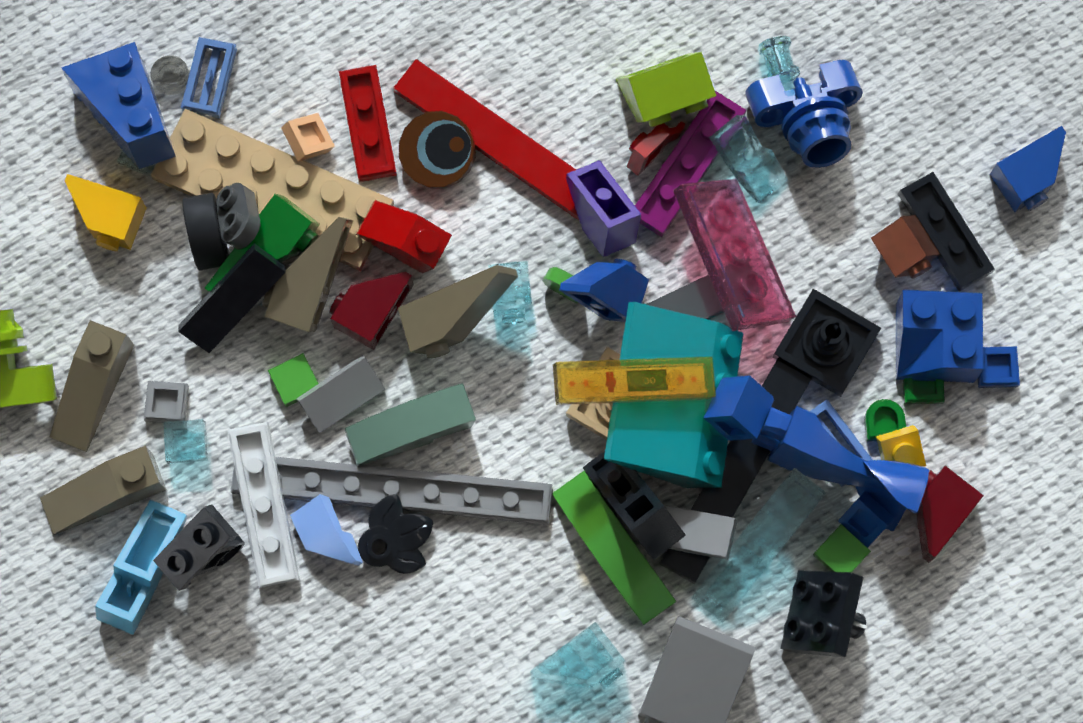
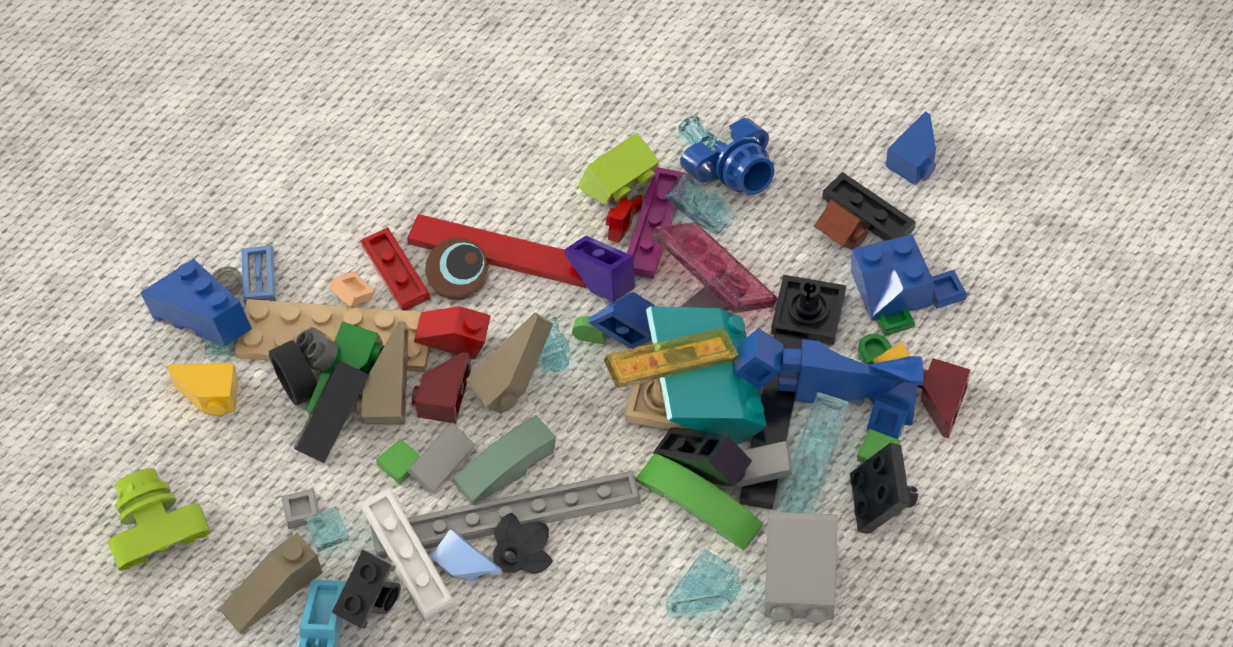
camera: 15 degrees left, 20 degrees down
(90, 384) = (235, 510): dark tan slope -> none

